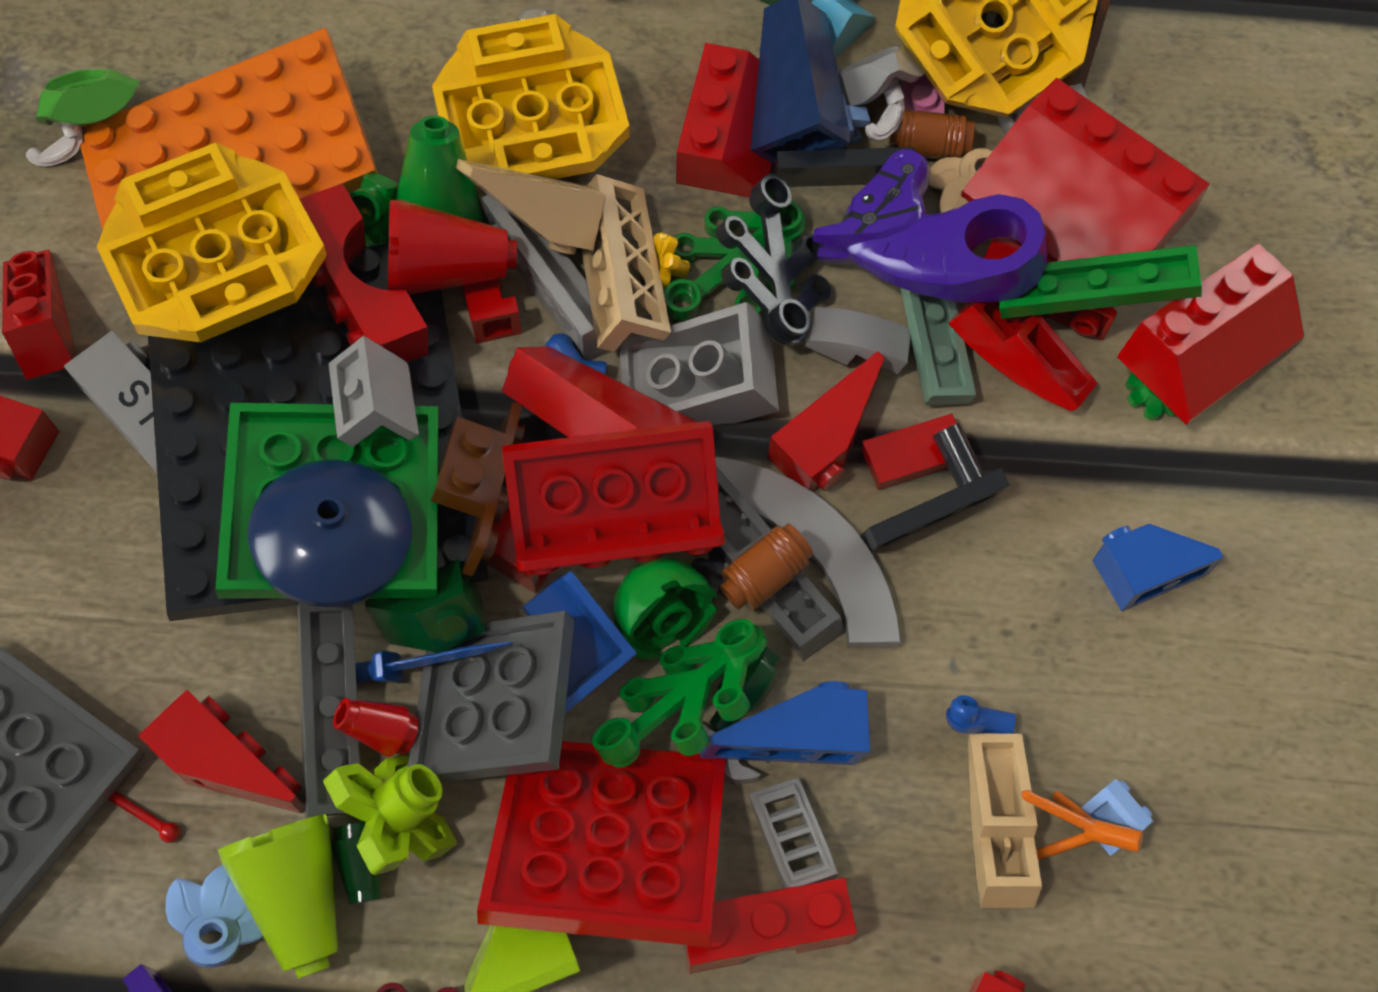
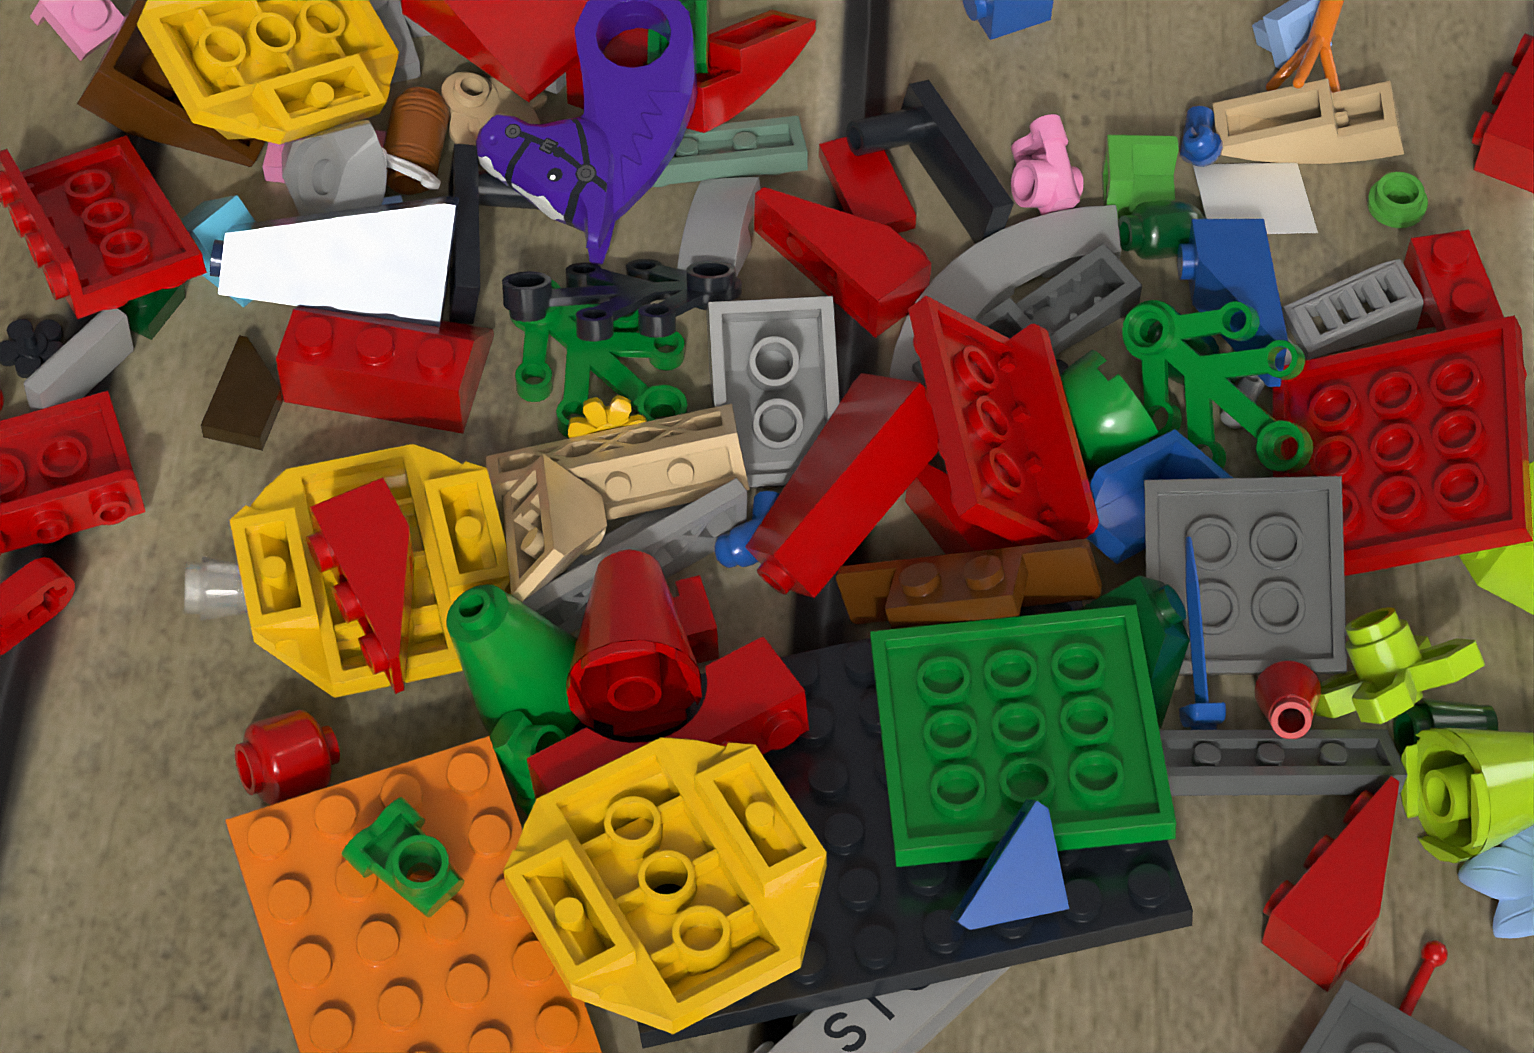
camera: 90 degrees left, 10 degrees down
(180, 477) = (1019, 876): none -> slope
(266, 118) = (396, 849): none -> green plate
(337, 557) = (1082, 737): dark blue dish -> none
(371, 391) = (876, 689): light grey panel -> none
(399, 79) = (286, 756): none -> red head
(501, 95) = (372, 560): none -> red slope
(686, 44) = (243, 401): none -> dark brown tile
(766, 567) = (1055, 302): dark orange head -> none
(879, 674) = (1157, 228): none -> dark green plant
(916, 764) = (1257, 192): none -> white sticker
(921, 587) = (1043, 169): none -> bright pink plate
(929, 662) = (1138, 170): none -> bright green panel
(929, 879) = (1398, 200): none -> bright green plate

